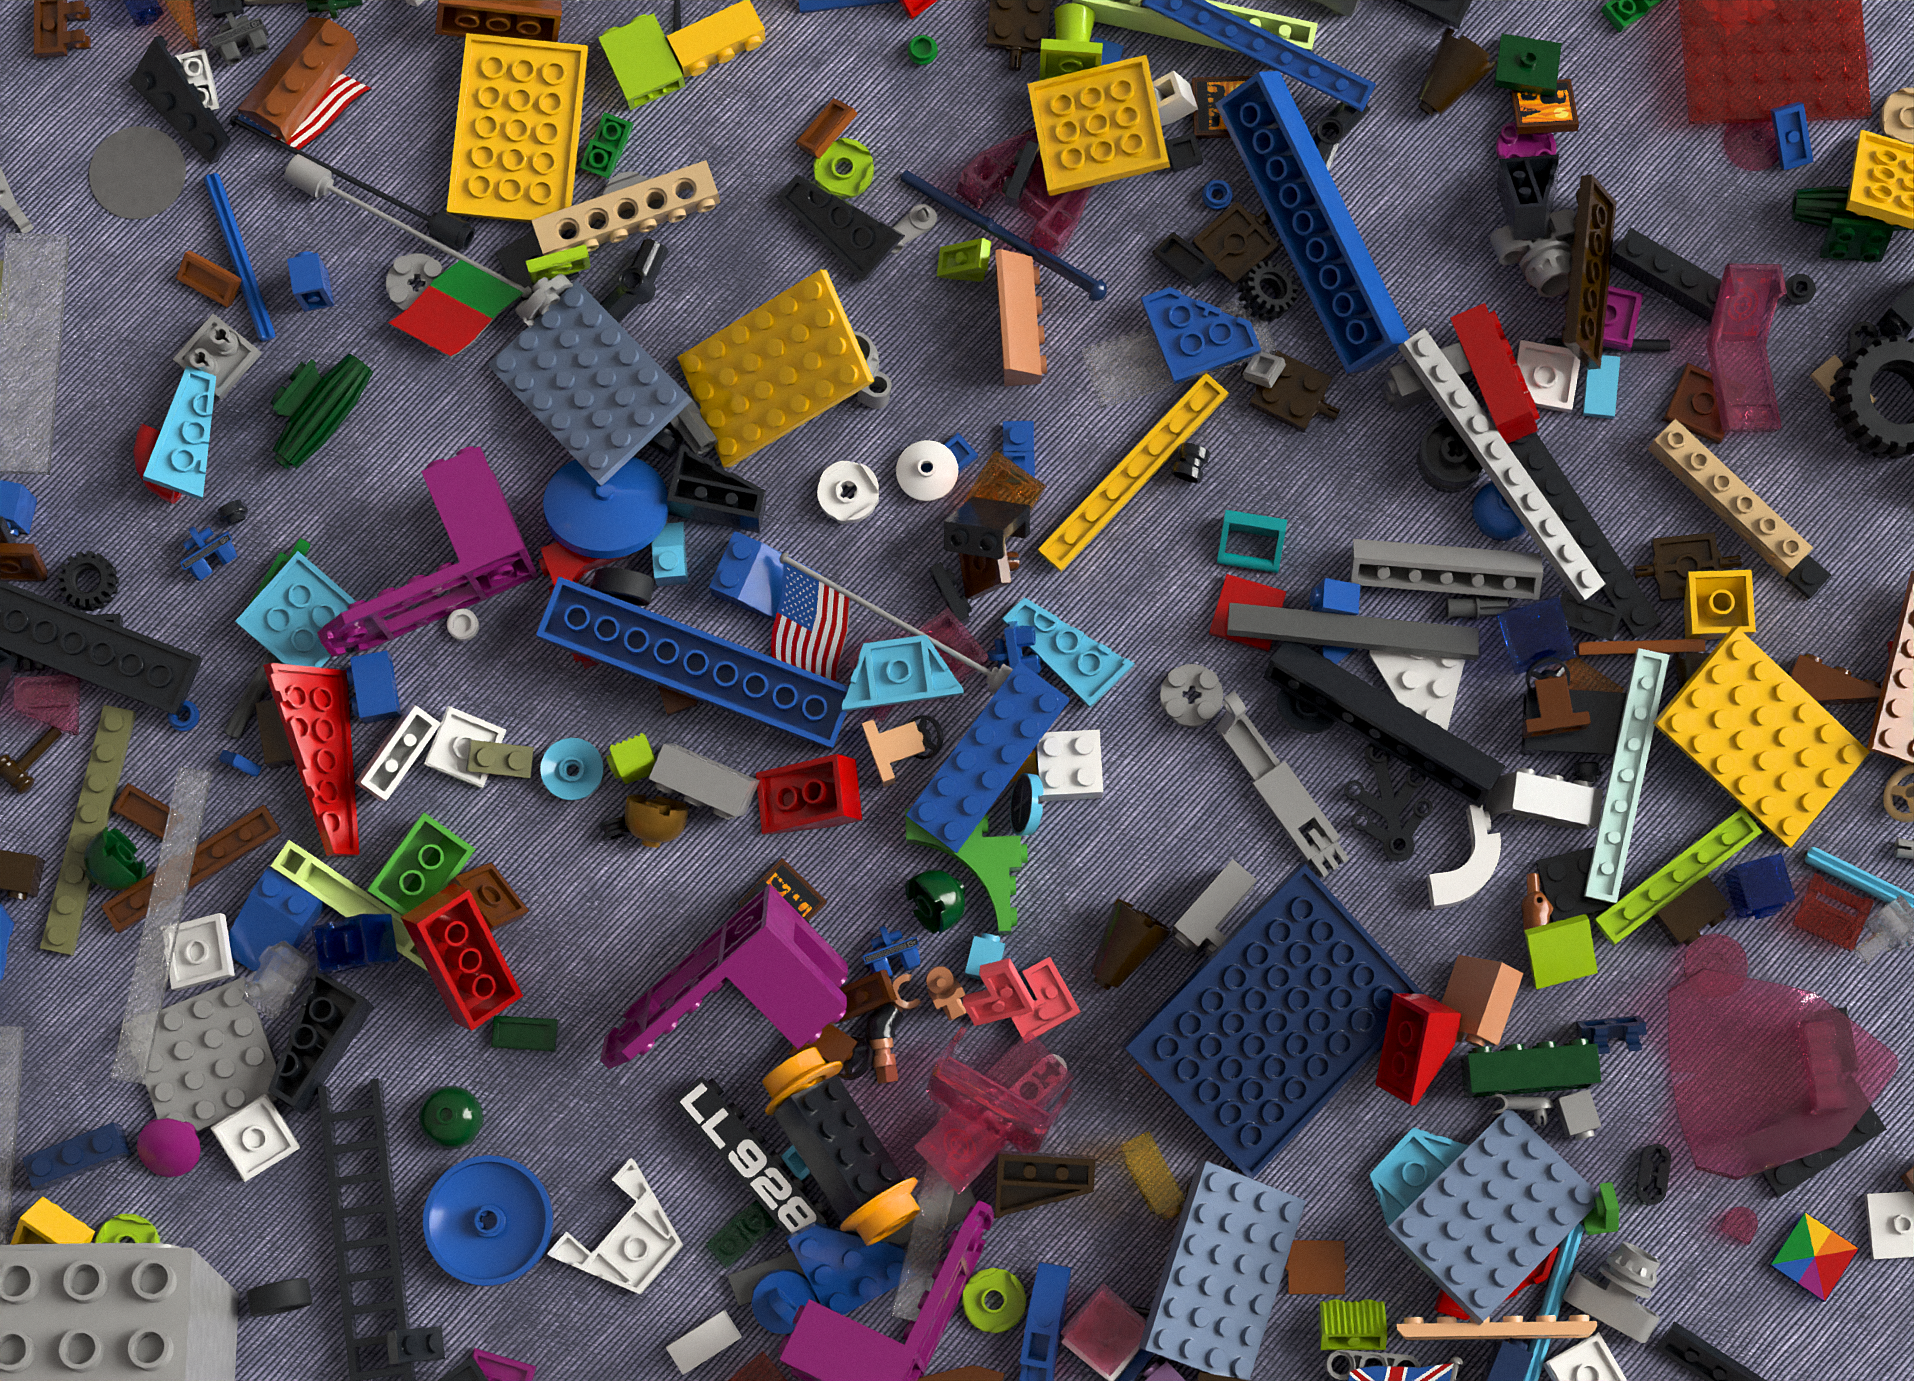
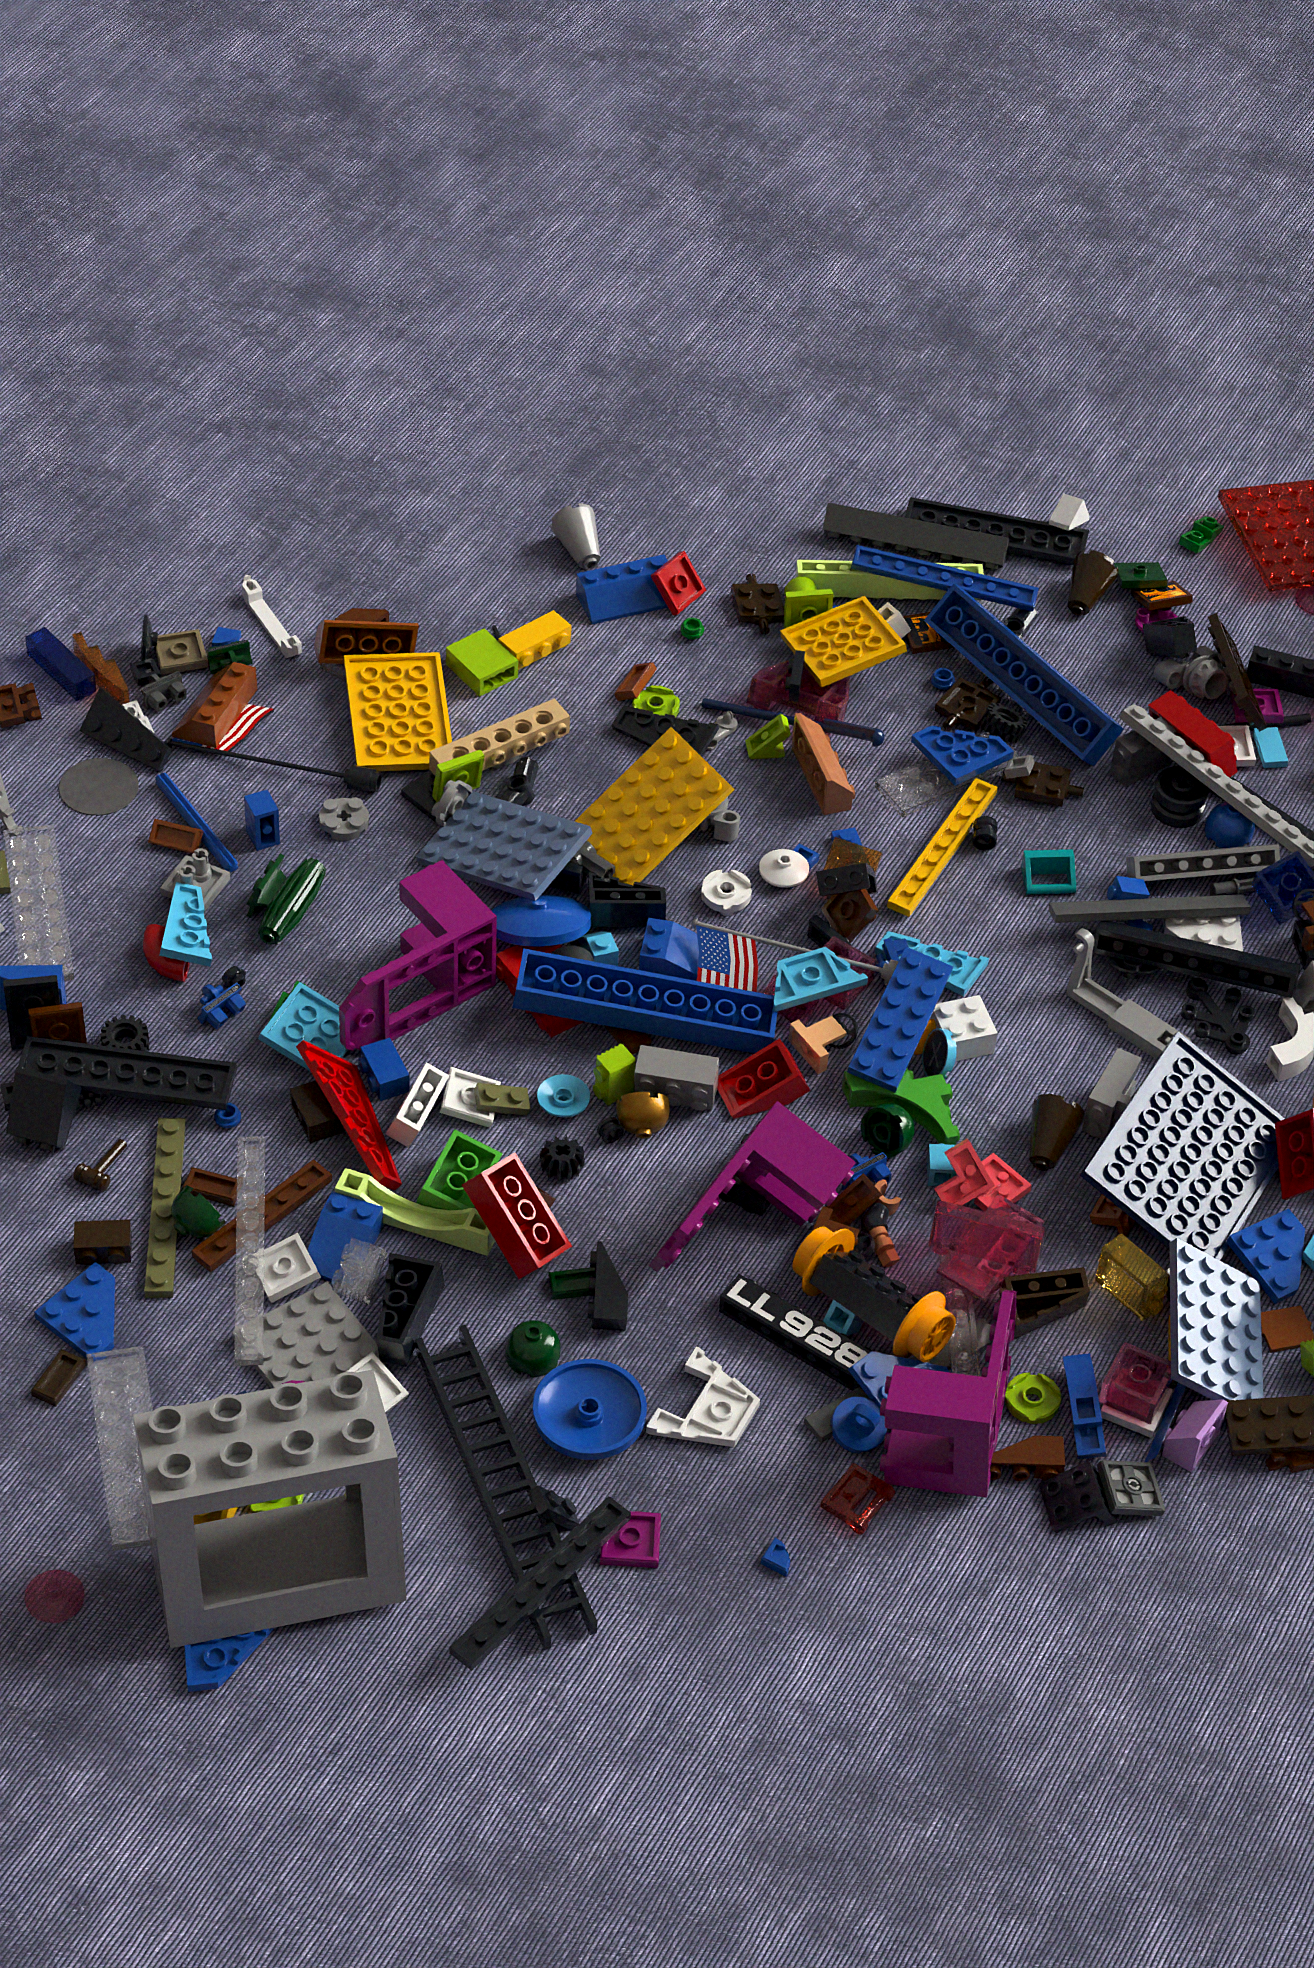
camera: 20 degrees left, 30 degrees down
(50, 700) = (111, 1121): clear pink wing -> none
(239, 762) = (284, 1136): blue tile -> none
(252, 695) = (282, 1094): dark grey axle -> none
(279, 1297) = (425, 1507): black tyre -> none
(354, 943) = (421, 1226): clear blue piece -> none
(455, 304) = (375, 826): flag -> none
(462, 624) = (443, 1022): white tile -> none
(545, 870) = (562, 1158): none -> black gear
(549, 1072) = (610, 1298): none -> black slope
(607, 145) = (469, 715): green slope -> none
(703, 1342) = (800, 1466): white slope -> none
(741, 1234) = (805, 1389): clear green slope -> none
(945, 991) = (920, 1189): nougat hips -> none
(1177, 706) = (1039, 964): light grey plate -> none
(1183, 152) = (911, 659): black plate -> none
(1184, 260) = (933, 715): black tile -> none
(1244, 592) = (1056, 931): red tile -> none
(1334, 1165) = (1272, 1253): none -> blue plate

